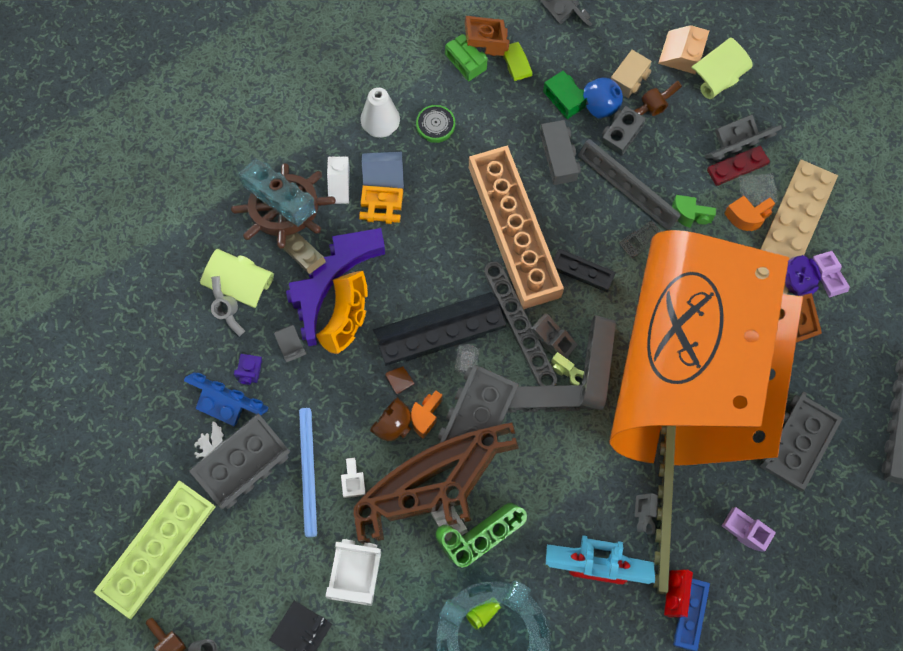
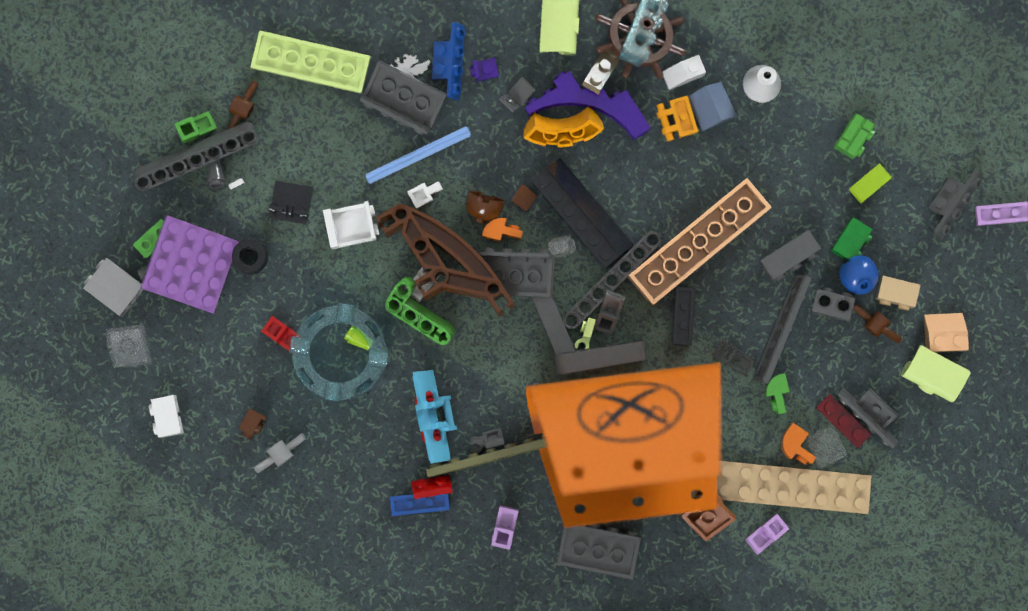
camera: 70 degrees right, 15 degrees up
(230, 302) = (534, 27): light grey piece -> none
(435, 123) = (776, 135): tile -> none
(487, 34) = (882, 146): dark orange plate -> none
(802, 275) = (752, 508): dark purple tile -> none

